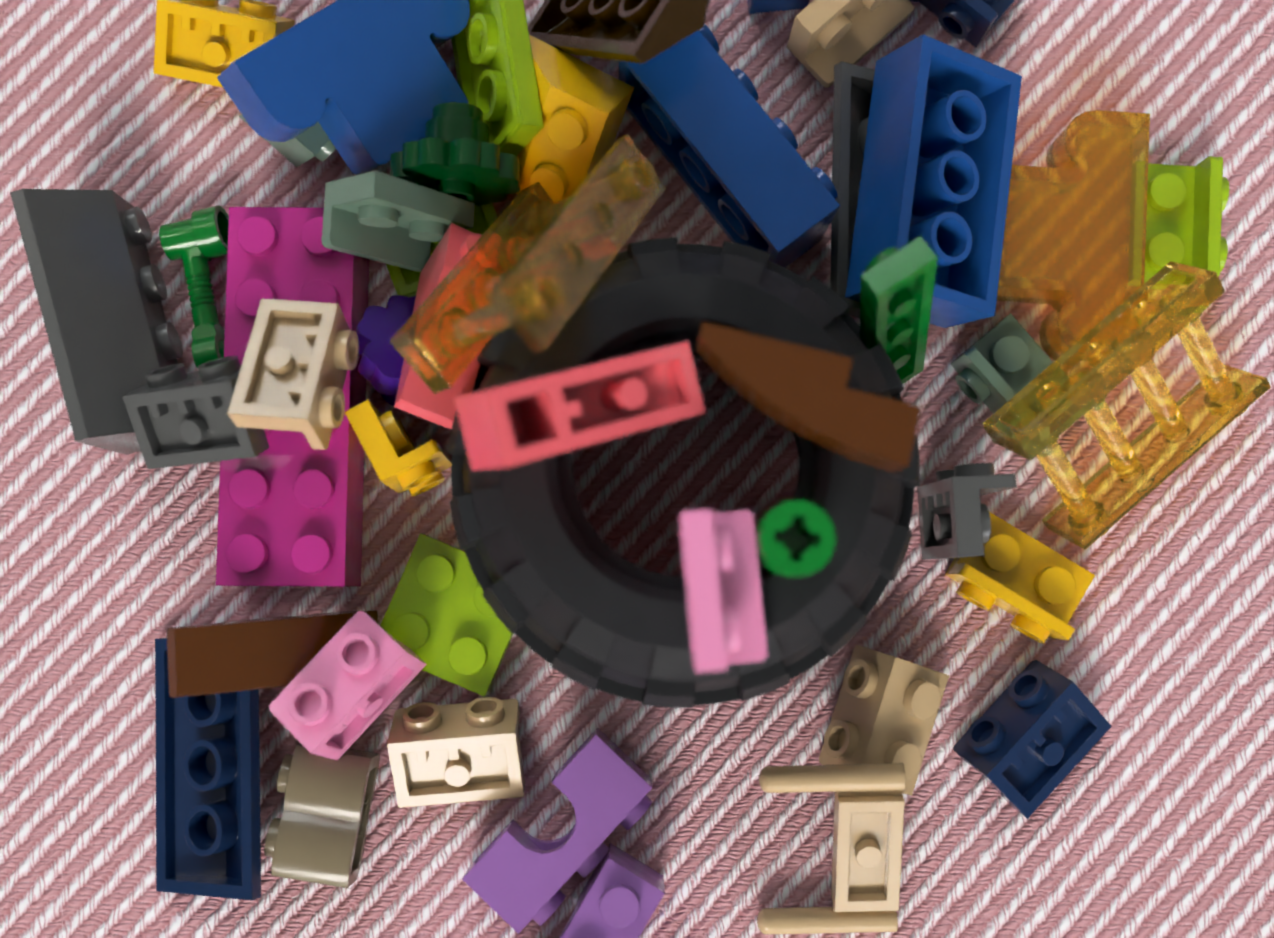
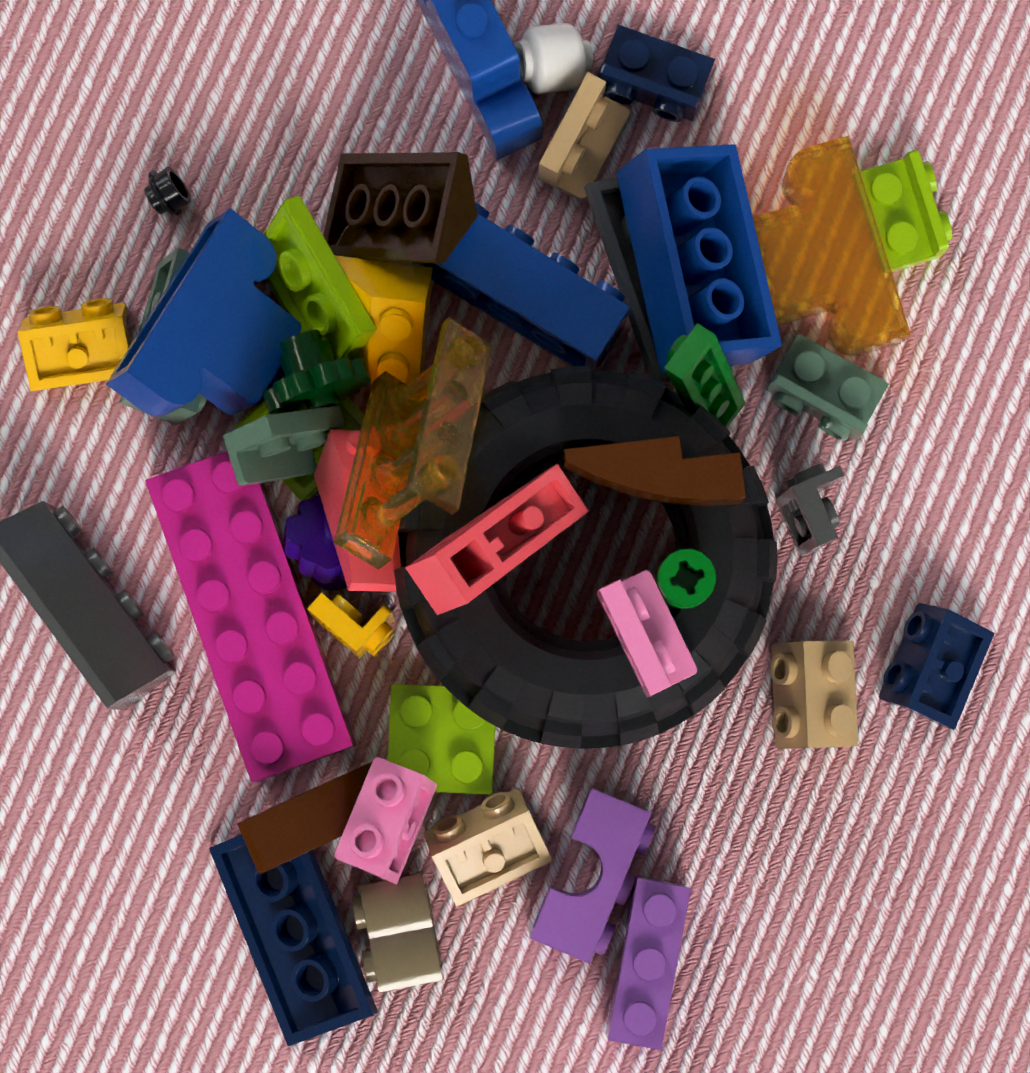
camera: 20 degrees left, 0 degrees up
(185, 416) = (191, 652): dark grey bracket -> none
(195, 243) = (118, 517): green brick -> none
(295, 370) = (259, 589): tan bracket -> none
(864, 847) = (834, 801): tan plate -> none
(1024, 581) = (883, 543): yellow bracket -> none
(1097, 364) = (875, 353): clear yellow fence -> none

